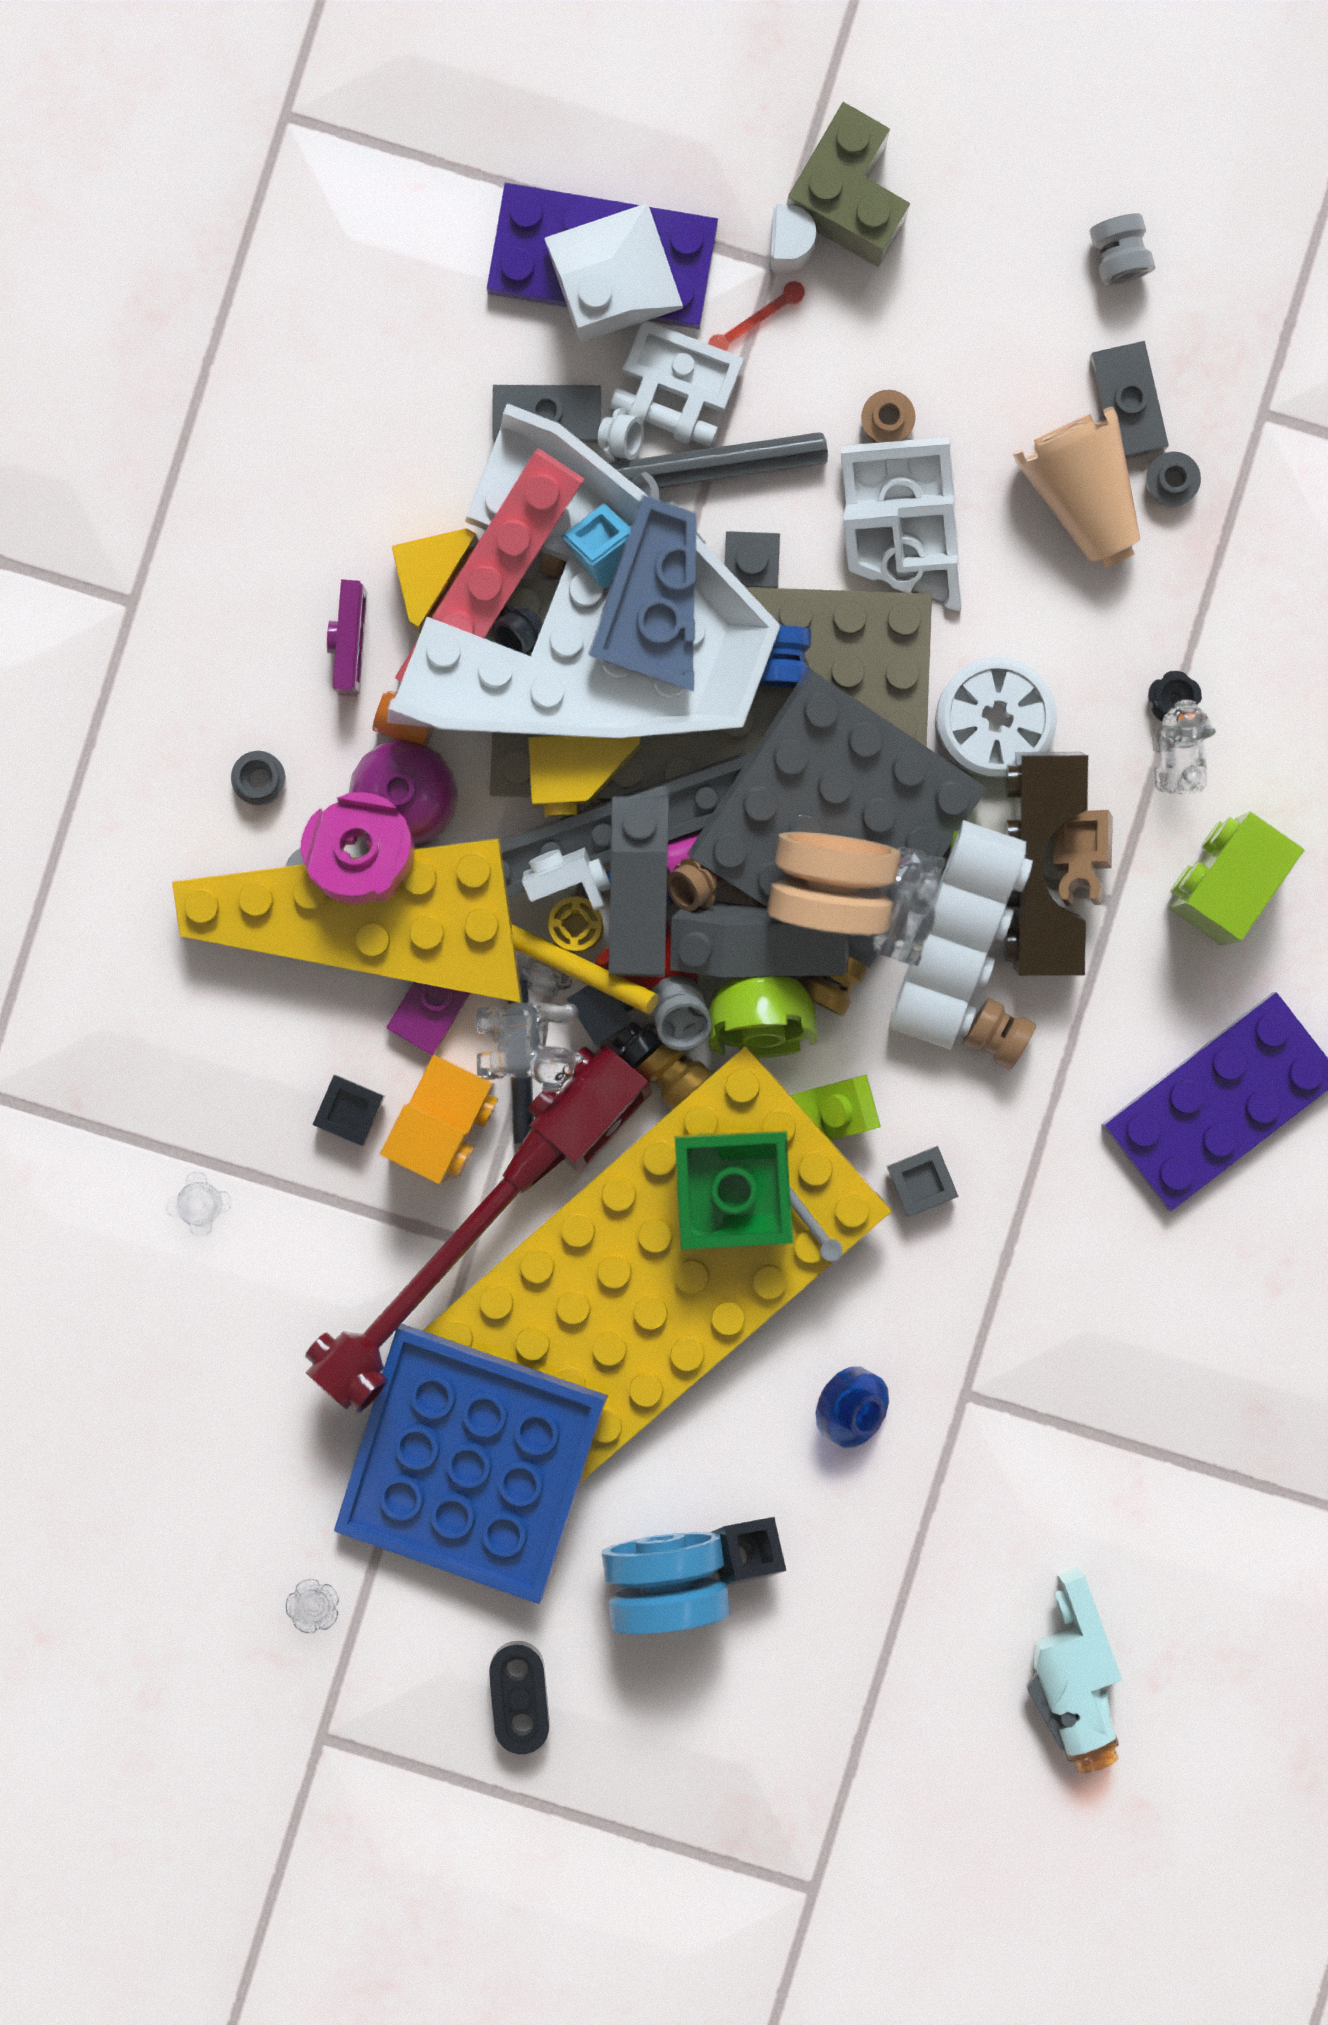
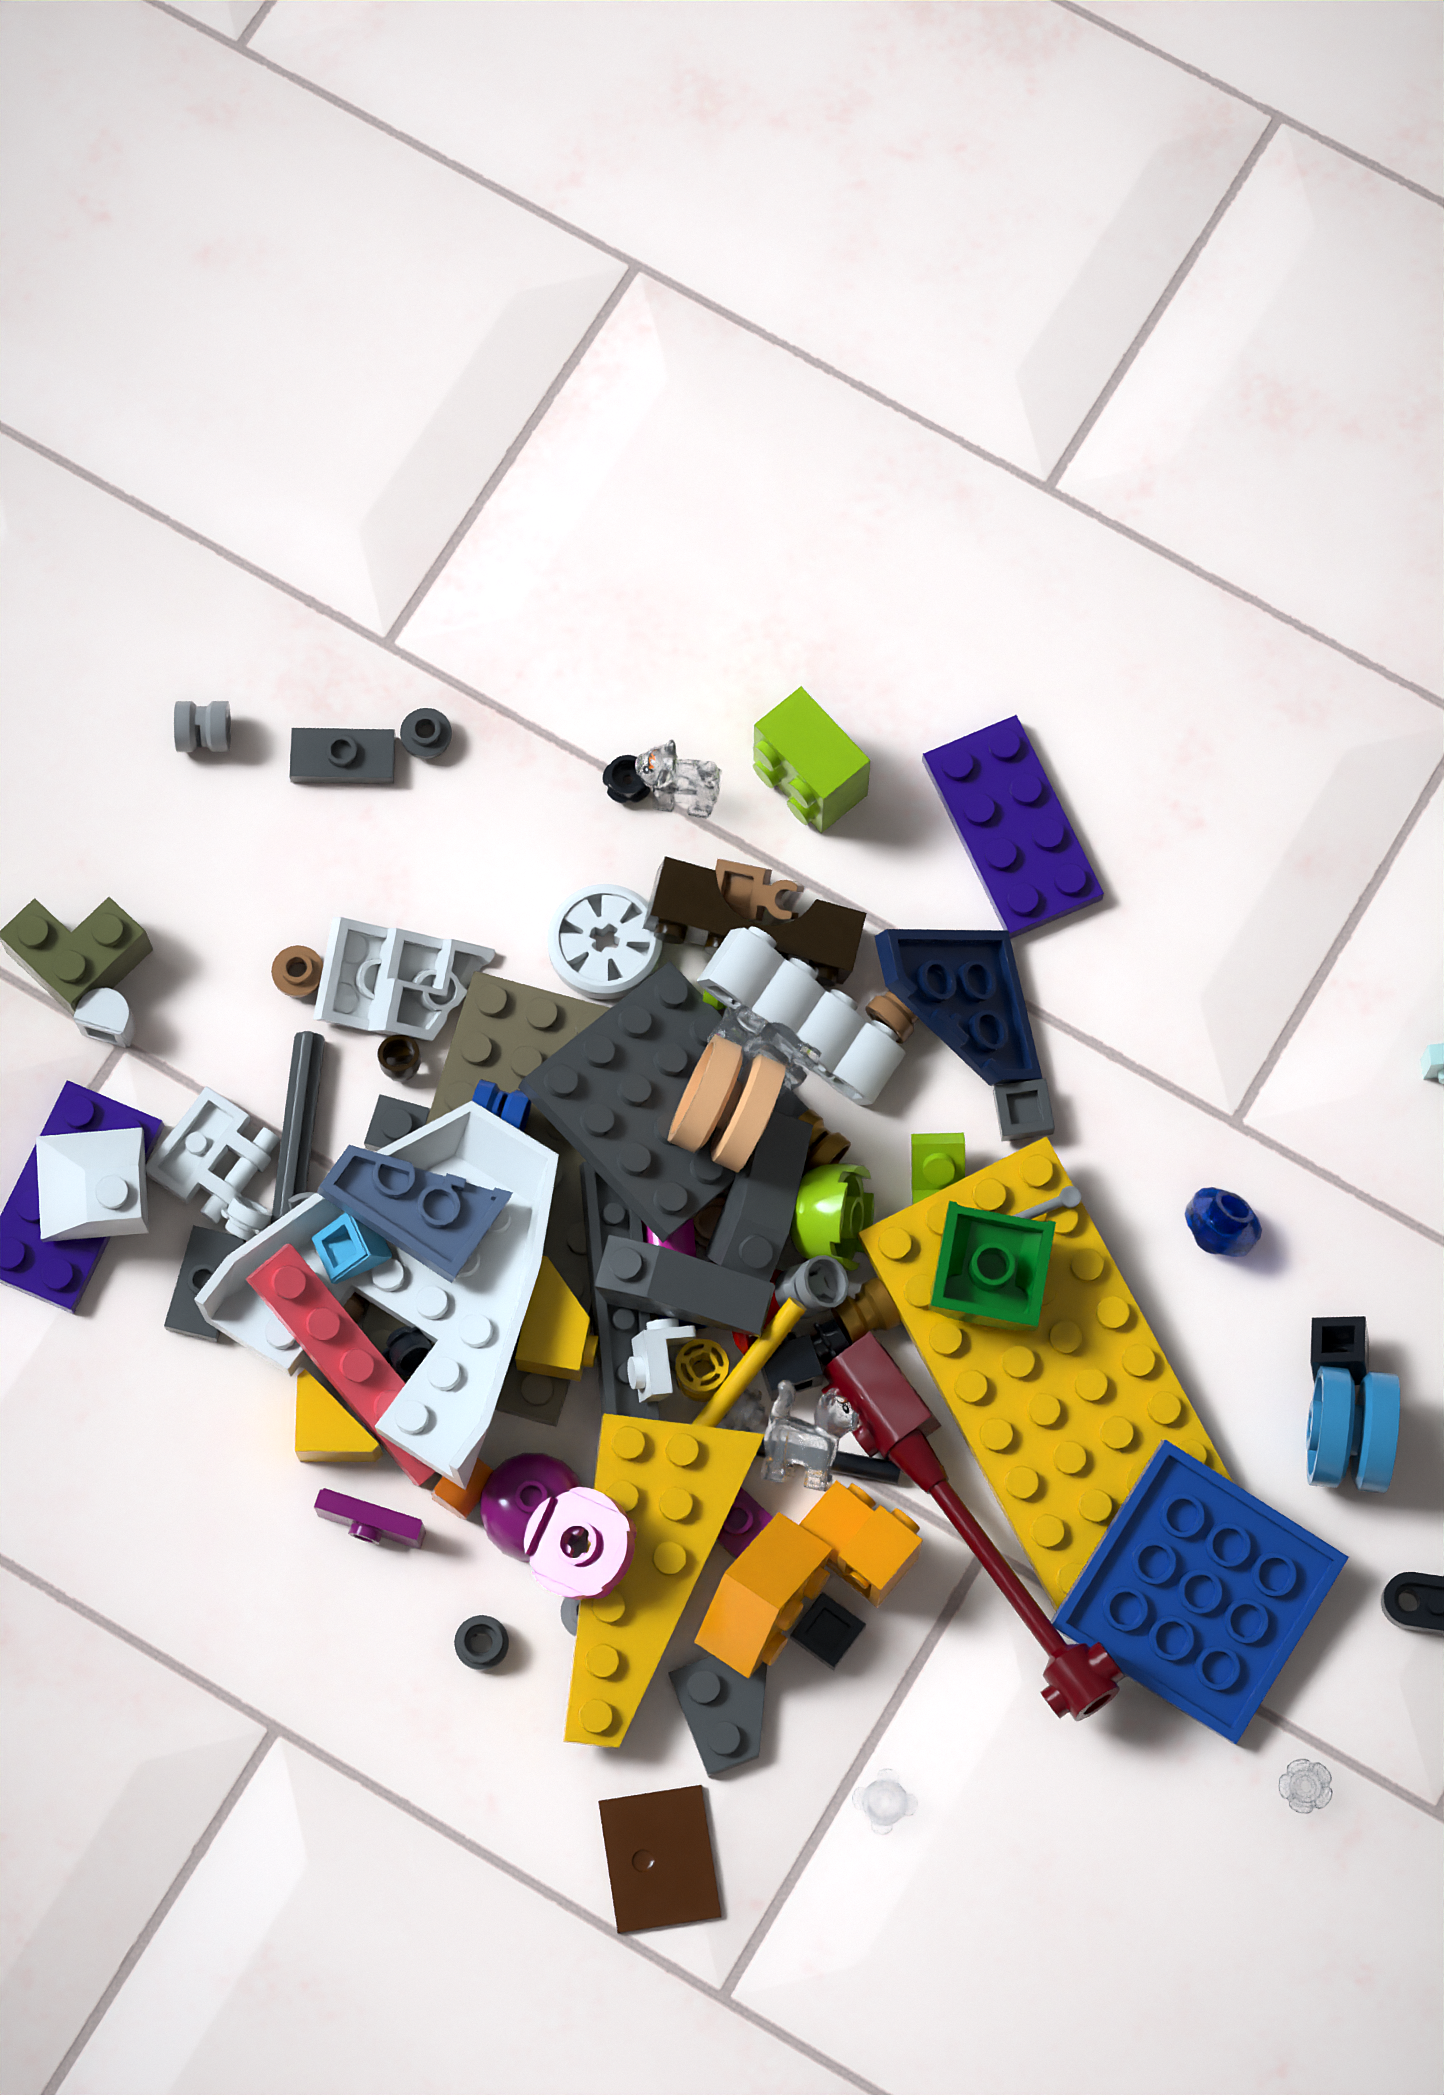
camera: 75 degrees left, 15 degrees down
(96, 1001) = (659, 1859): none -> reddish brown piece
(257, 1027) = (721, 1711): none -> dark grey wing
(351, 1037) = (764, 1595): none -> light orange brick
(691, 885) = (695, 1240): medium nougat plate -> none
(792, 294) = (156, 1032): clear red hinge -> none
(830, 538) = (399, 1051): none -> dark brown hinge
(1021, 1096) = (967, 994): none -> dark blue plate
(1086, 485) = (410, 806): light nougat cone -> none

